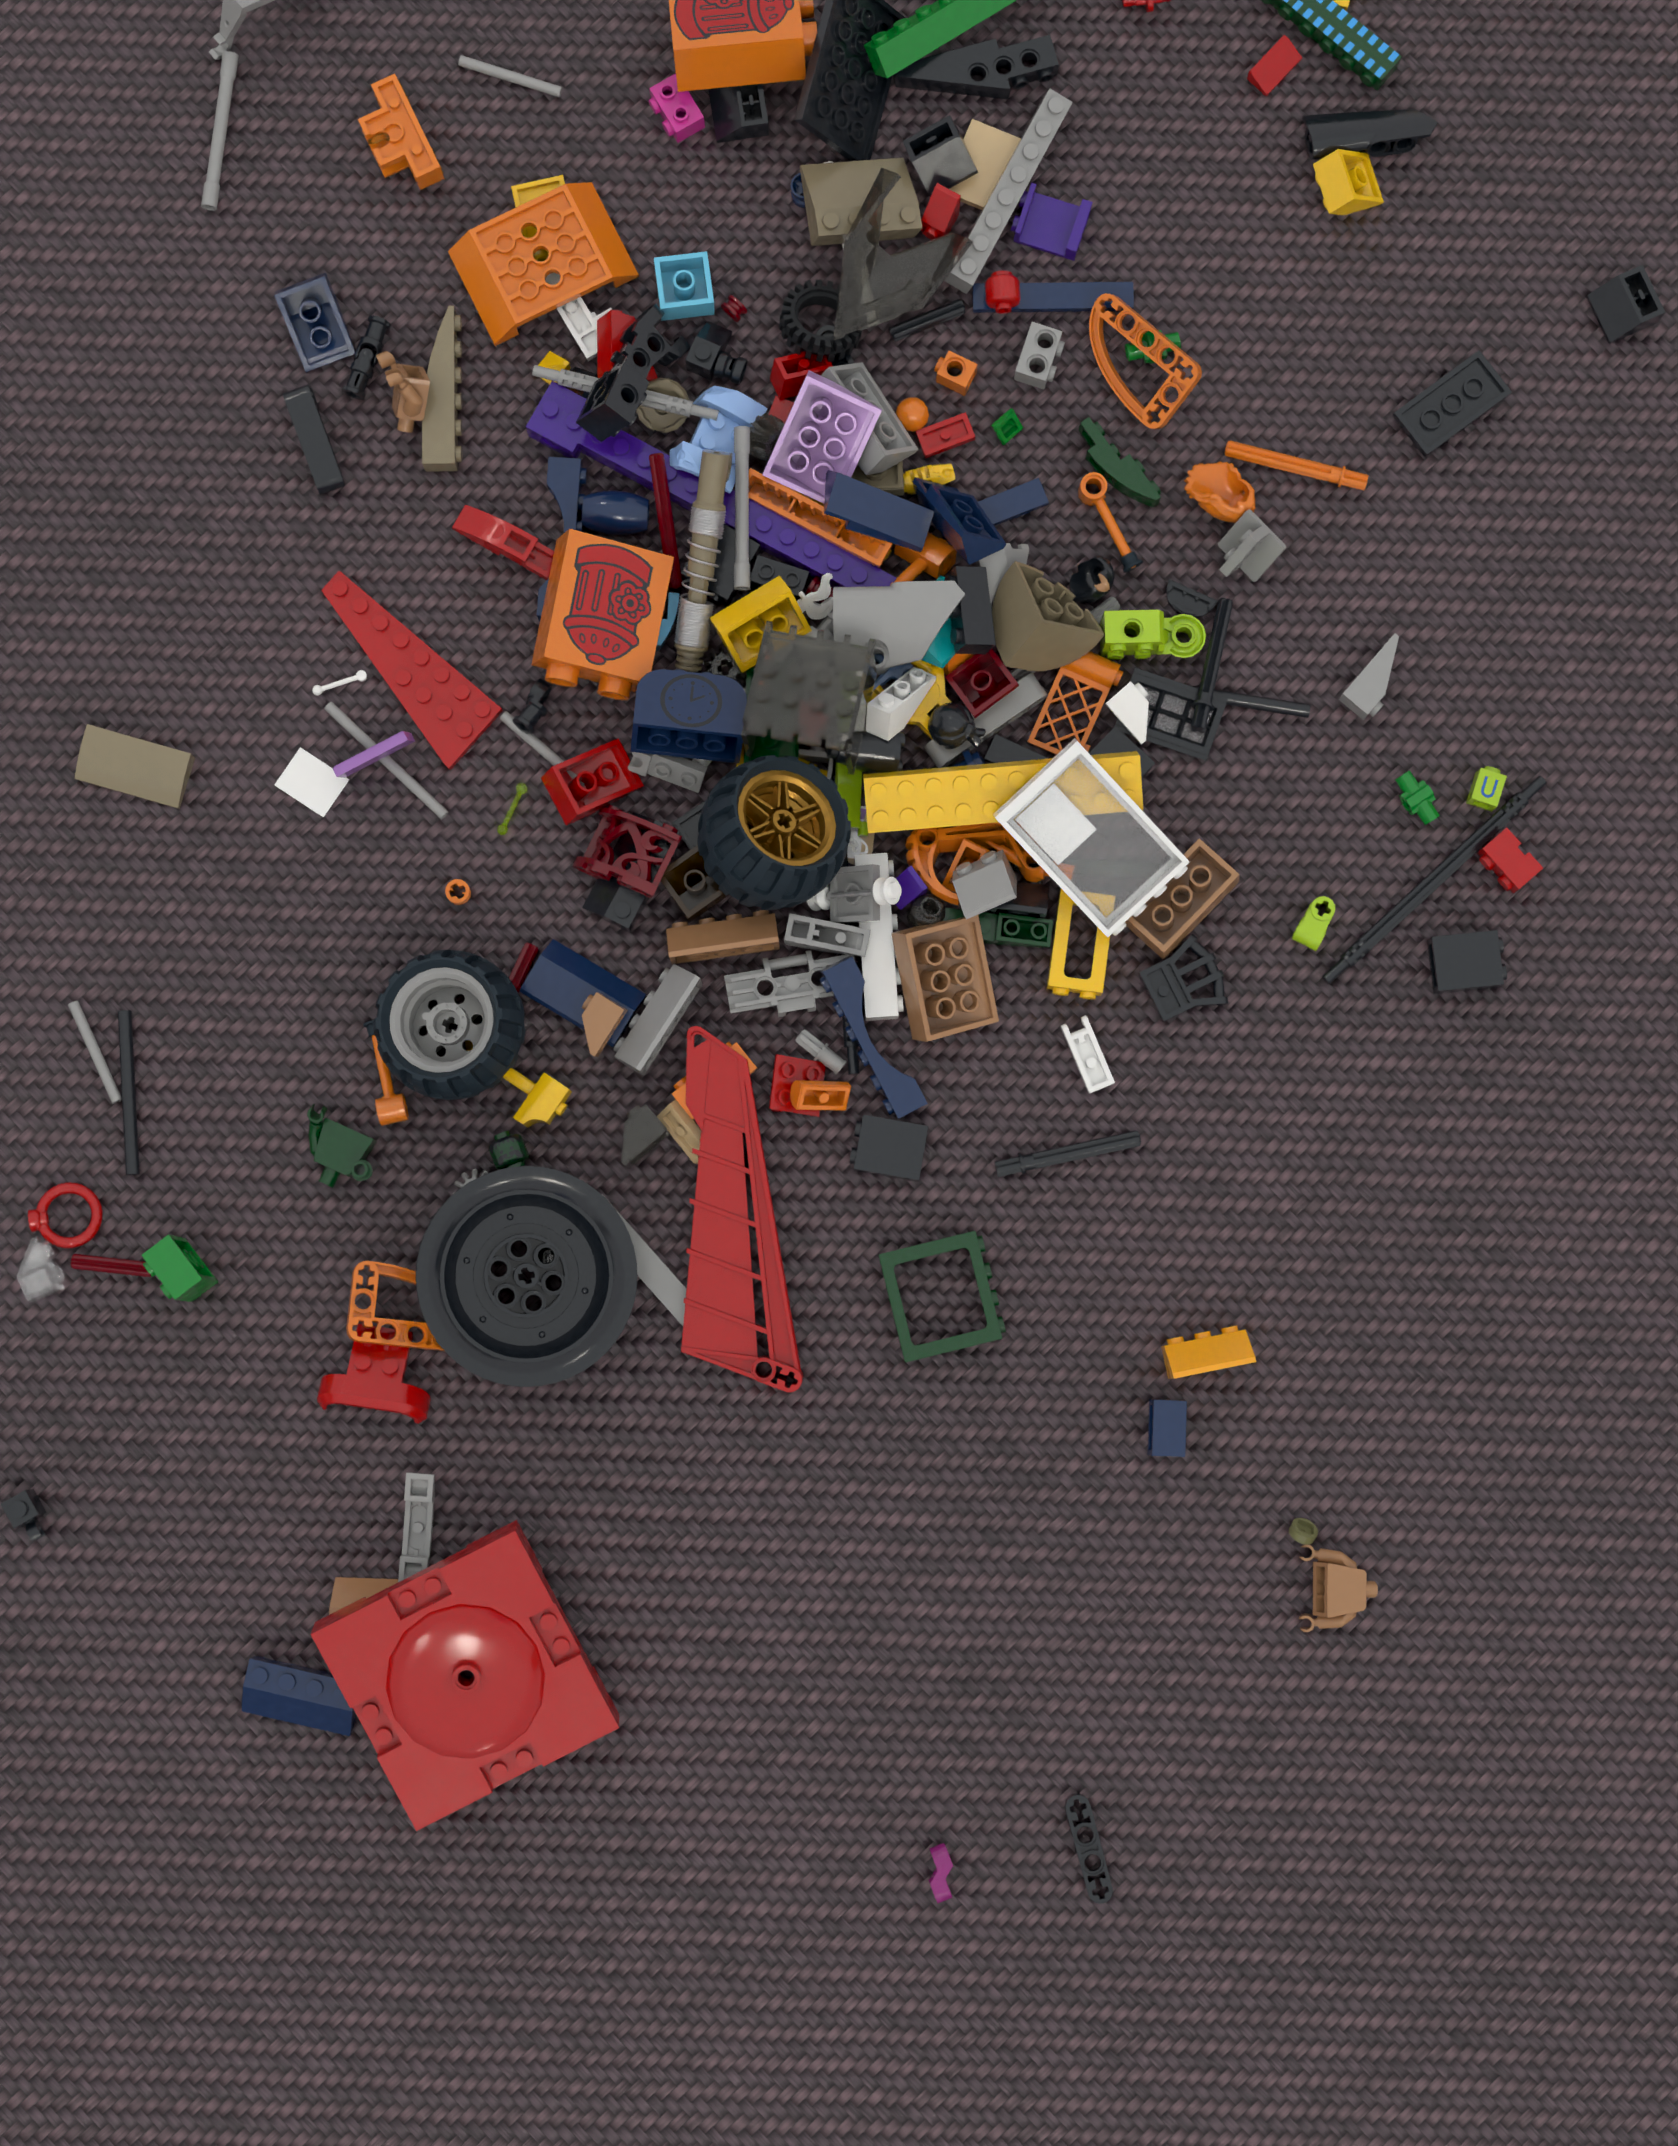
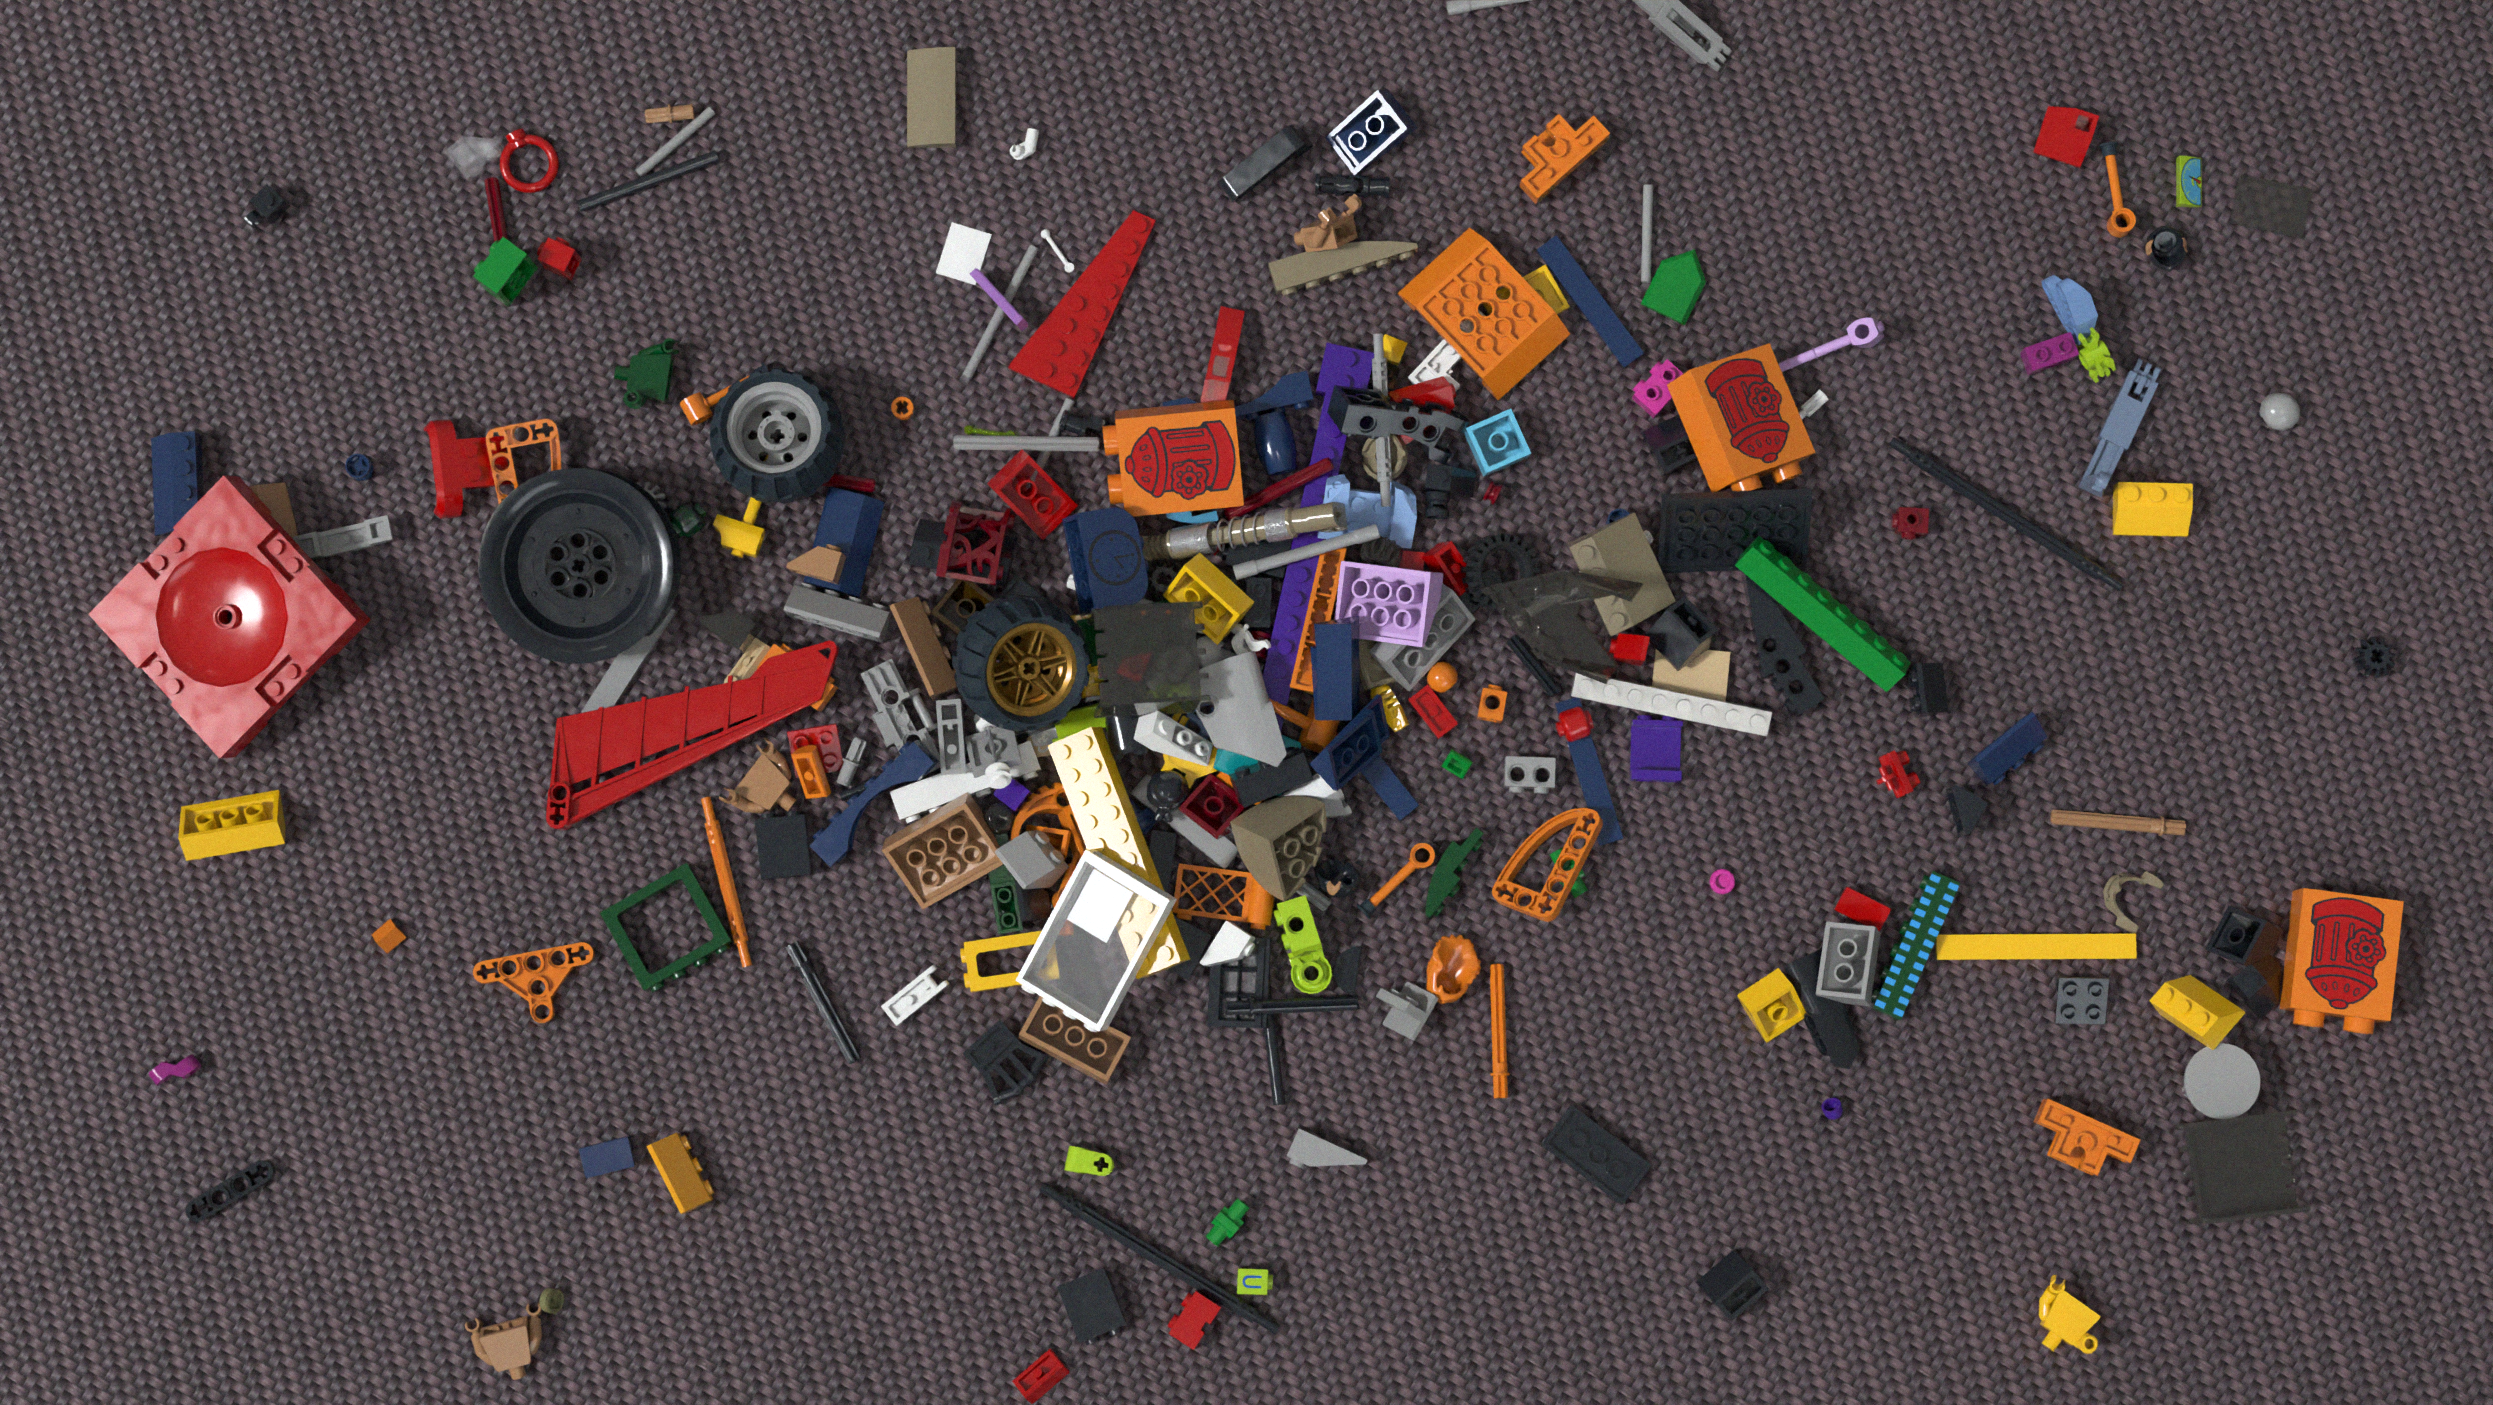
camera: 75 degrees right, 0 degrees up
(62, 1048) = (669, 113): none -> medium nougat axle
(182, 1208) = (559, 257): none -> red brick
(219, 682) = (1026, 148): none -> white arm
(339, 1490) = (358, 463): none -> dark blue wheel
(535, 771) = (1030, 443): none -> light grey axle
(564, 153) = (1590, 301): none -> dark blue tile
(575, 64) = (1676, 287): none -> green tile
(669, 768) = (1061, 572): light grey plate -> none
(693, 1737) = (232, 825): none -> yellow slope
(817, 1149) = (764, 784): none -> medium nougat torso
(862, 1599) = (388, 936): none -> orange slope
(909, 1220) = (726, 882): none -> orange axle
(949, 1465) = (524, 977): none -> orange beam
(1205, 197) = (1722, 881): none -> dark pink tile
(1329, 91) = (1848, 963): none -> light grey slope
(1470, 154) = (1832, 1108): none -> dark purple hinge
(1523, 1038) = (1041, 1376): none -> red slope

